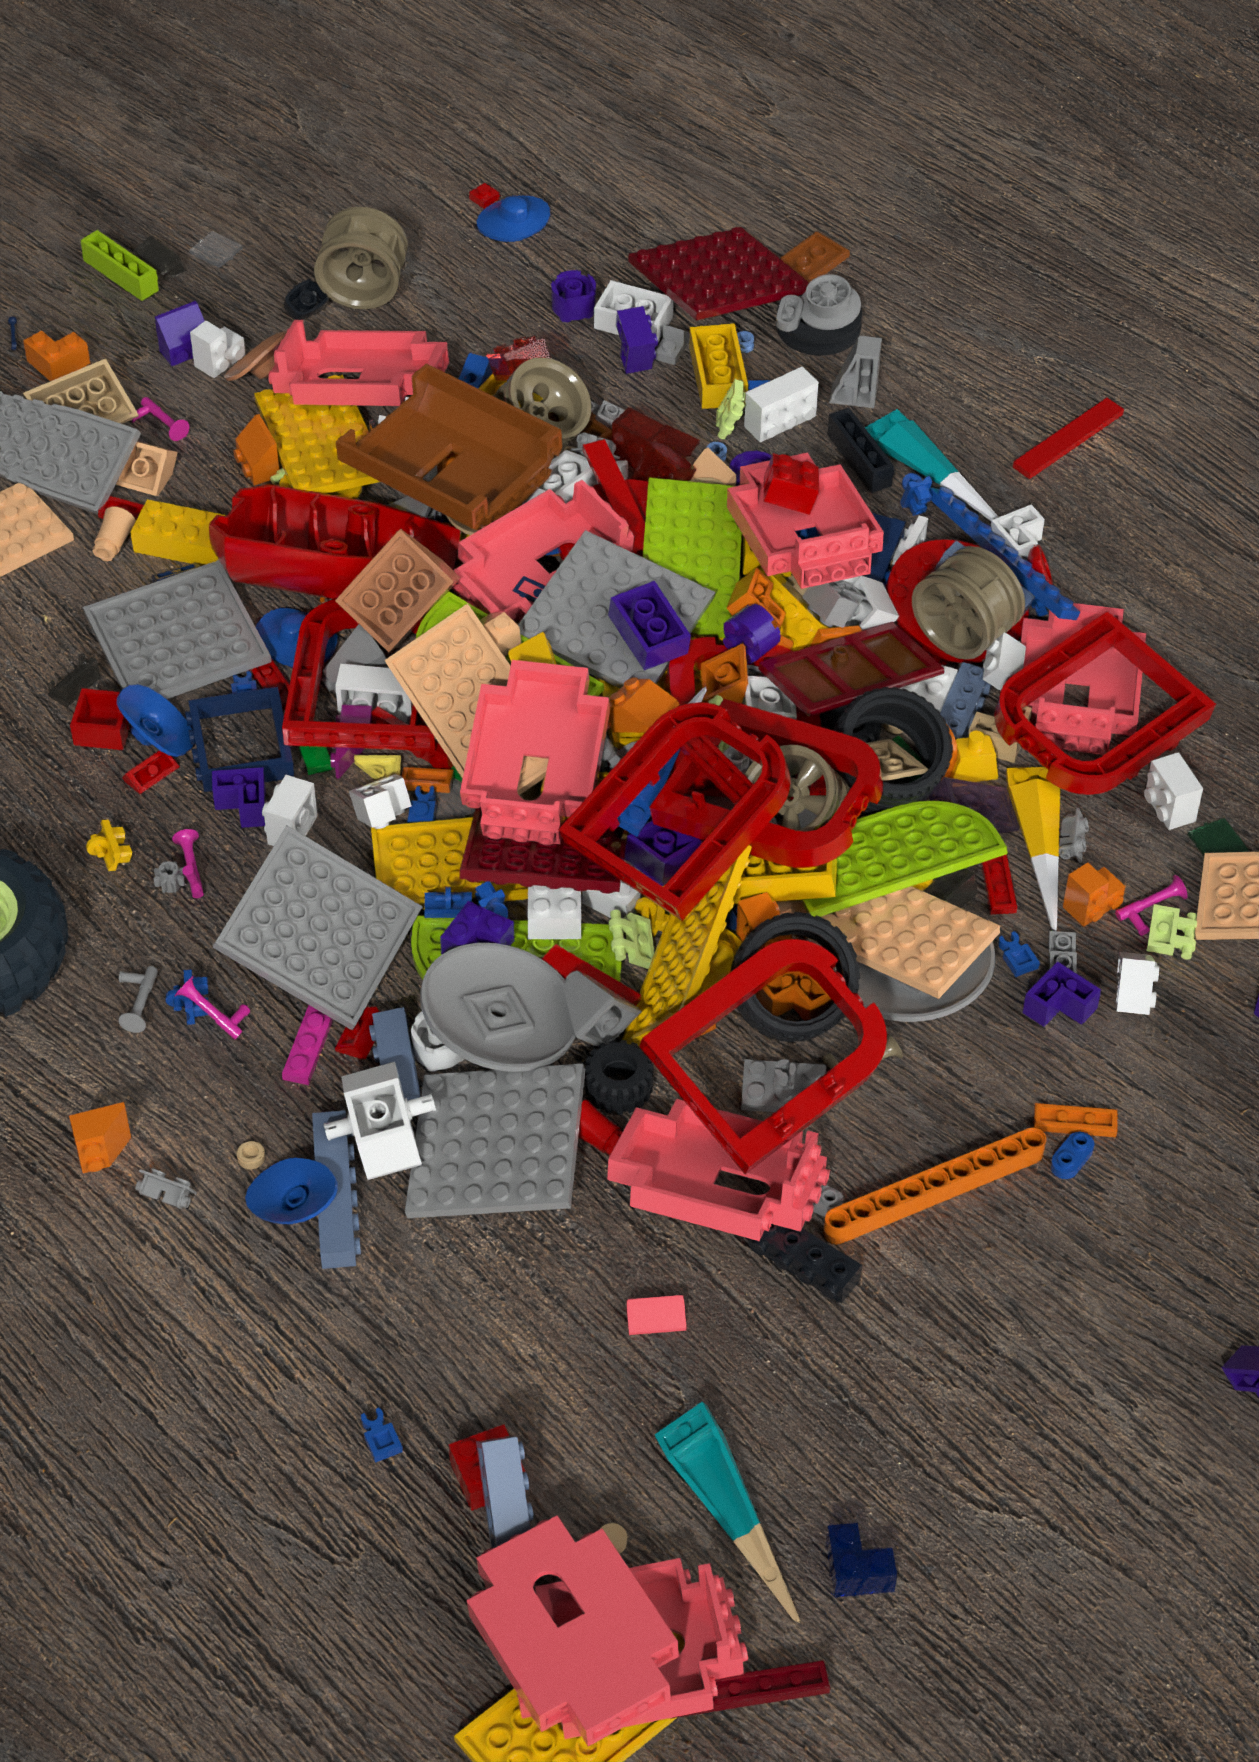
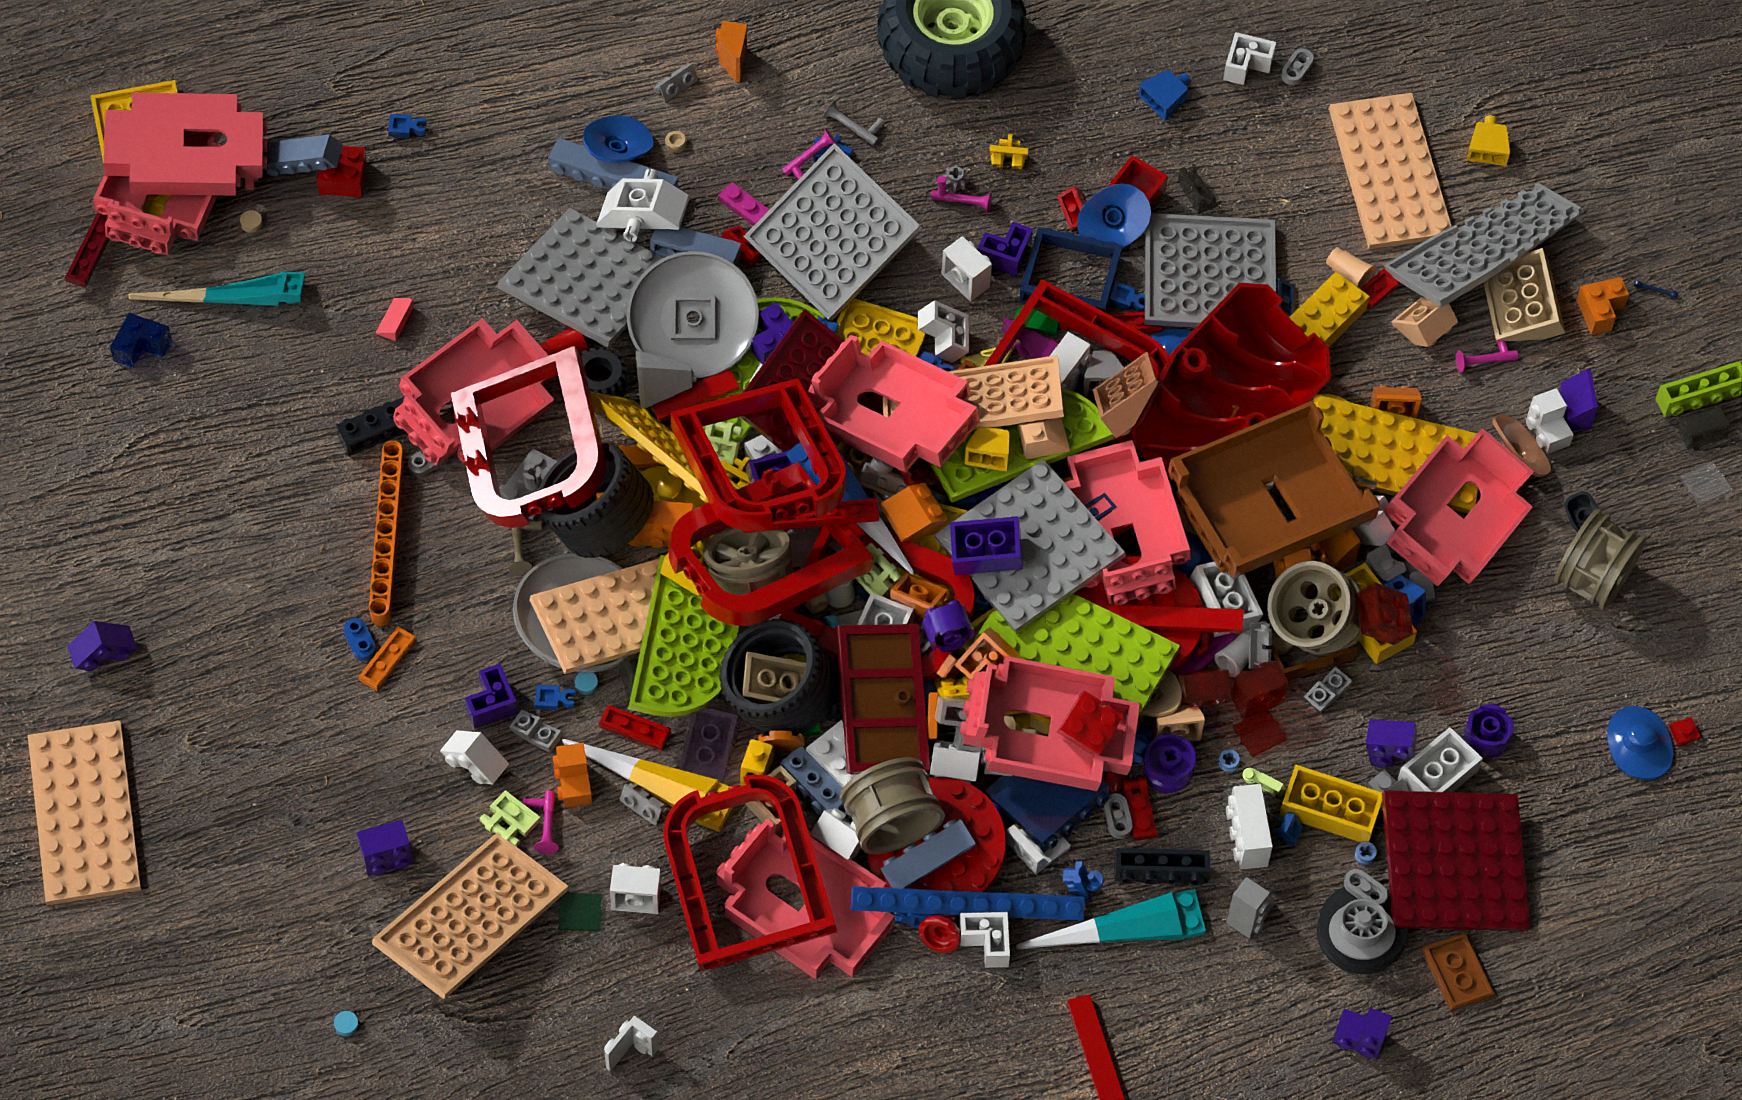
camera: 115 degrees right, 10 degrees up
(917, 282) = (1362, 1032): none -> dark purple brick

